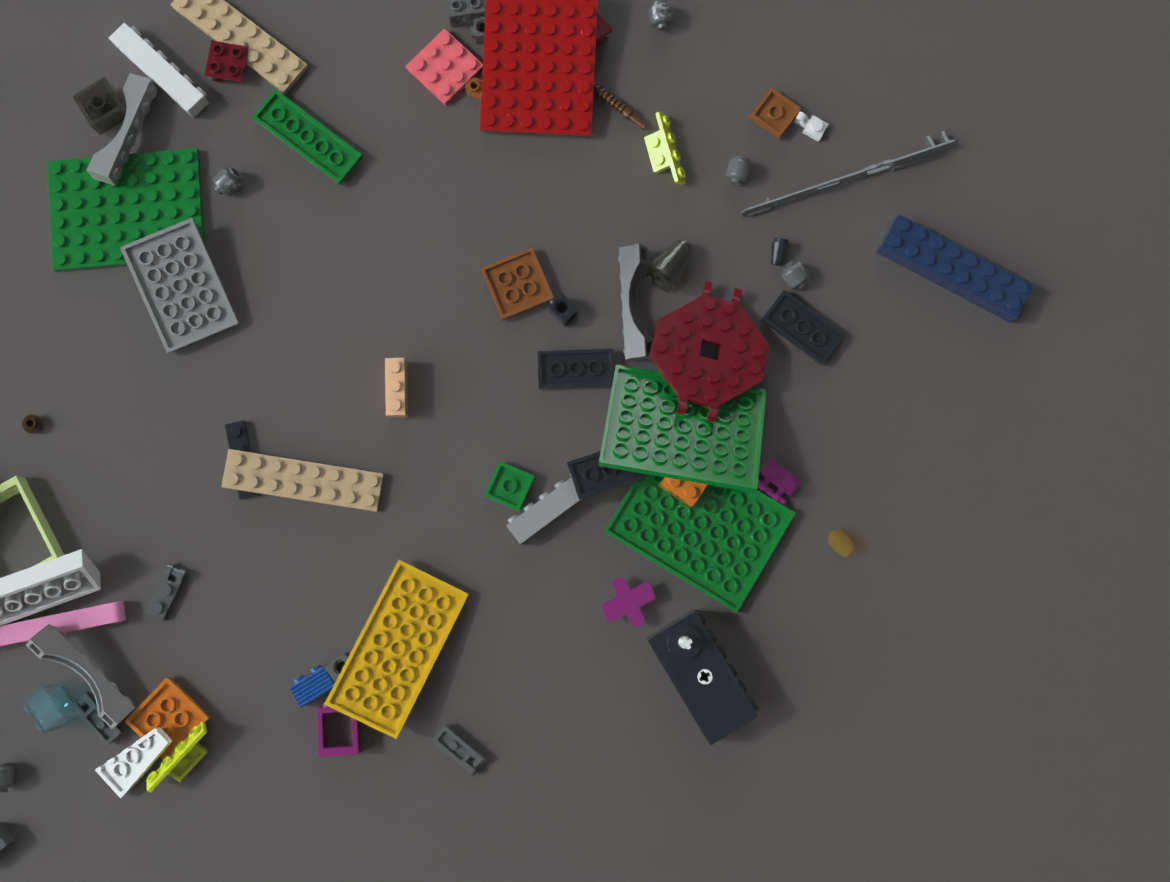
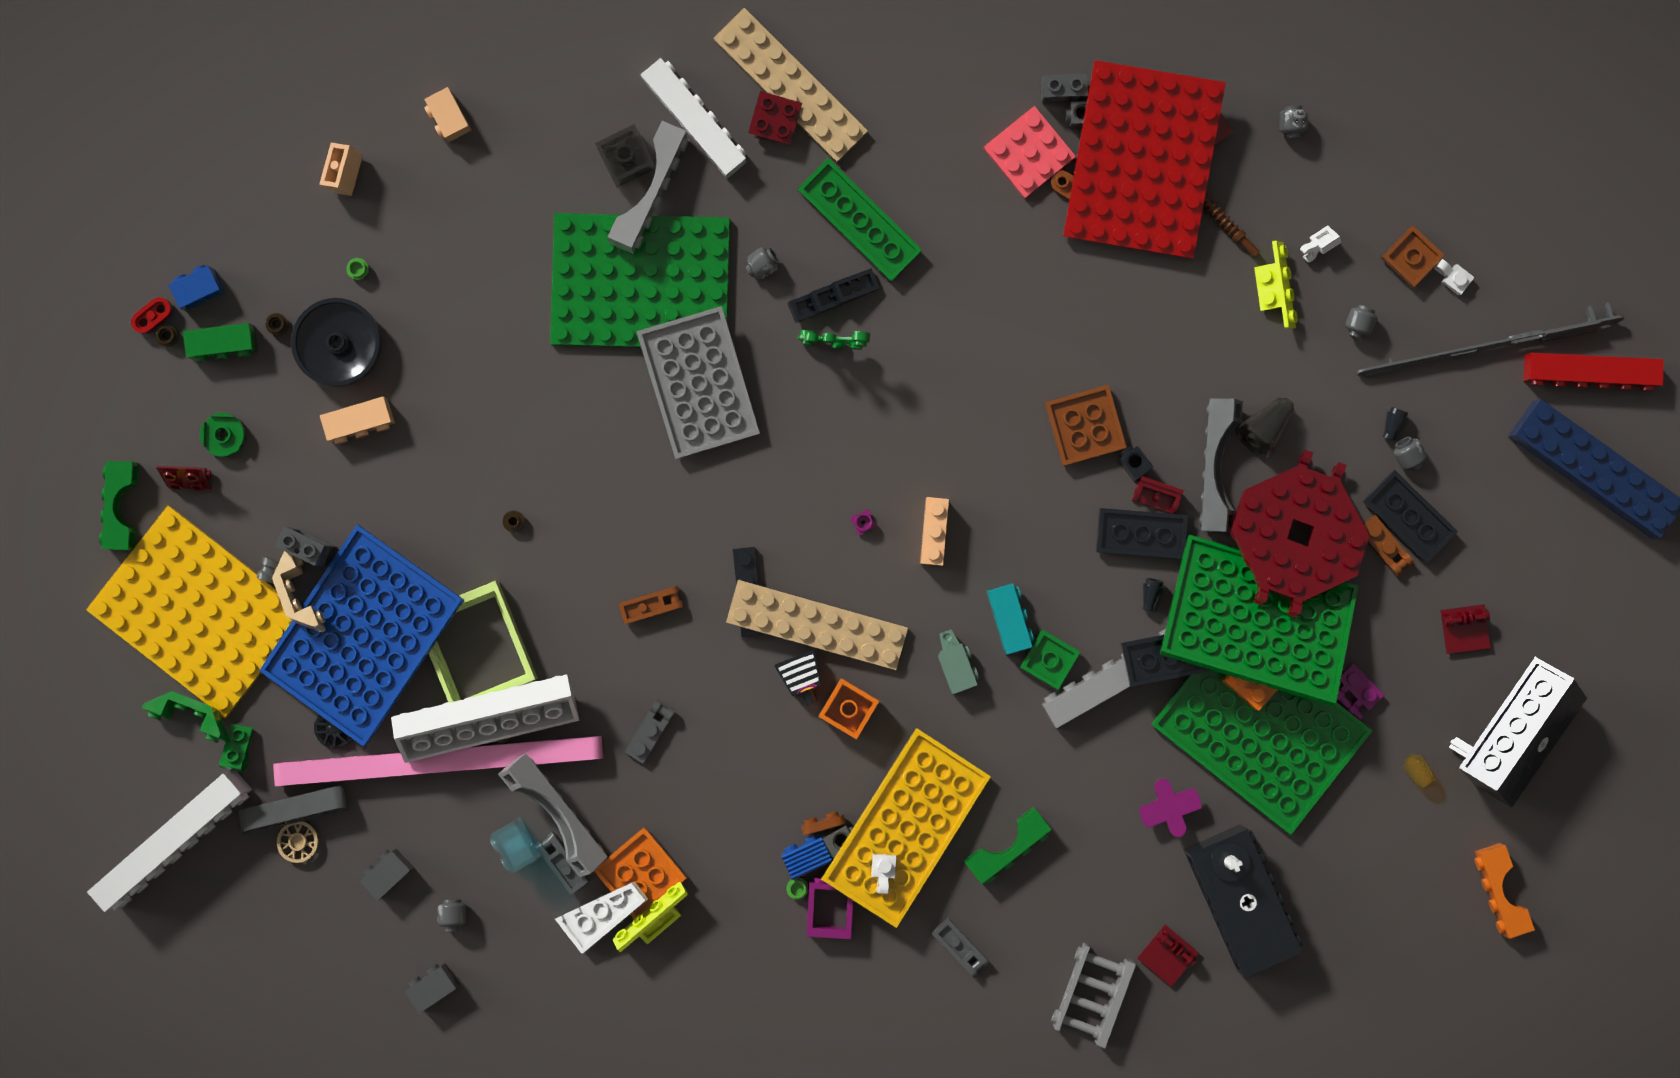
camera: 10 degrees right, 5 degrees up
(156, 481) = (649, 605): none -> dark orange plate
(291, 202) = (833, 295): none -> black slope
(293, 525) = (801, 675): none -> black torso
(297, 236) = (857, 341): none -> green plant
(308, 714) = (797, 888): none -> bright green plate
(317, 656) = (813, 825): none -> dark orange plate
(336, 549) = (848, 708): none -> orange brick
(337, 382) = (861, 528): none -> magenta plate
(378, 686) = (883, 867): none -> white plate
(427, 499) = (955, 663): none -> sand green hinge
(470, 454) = (1010, 618): none -> teal brick
(473, 671) = (1030, 830): none -> green arch
(585, 334) = (1157, 495): none -> dark red hinge
(590, 418) = (1152, 593): none -> black cone
(595, 791) = (1108, 1012): none -> light grey fence
(643, 733) = (1168, 955): none -> dark red hinge
(696, 110) = (1321, 241): none -> white plate
(786, 355) = (1387, 546): none -> dark orange plate
(863, 416) = (1465, 628): none -> dark red hinge
(917, 617) = (1494, 864): none -> orange arch
(924, 496) = (1521, 732): none -> piece
(939, 187) = (1593, 370): none -> red brick

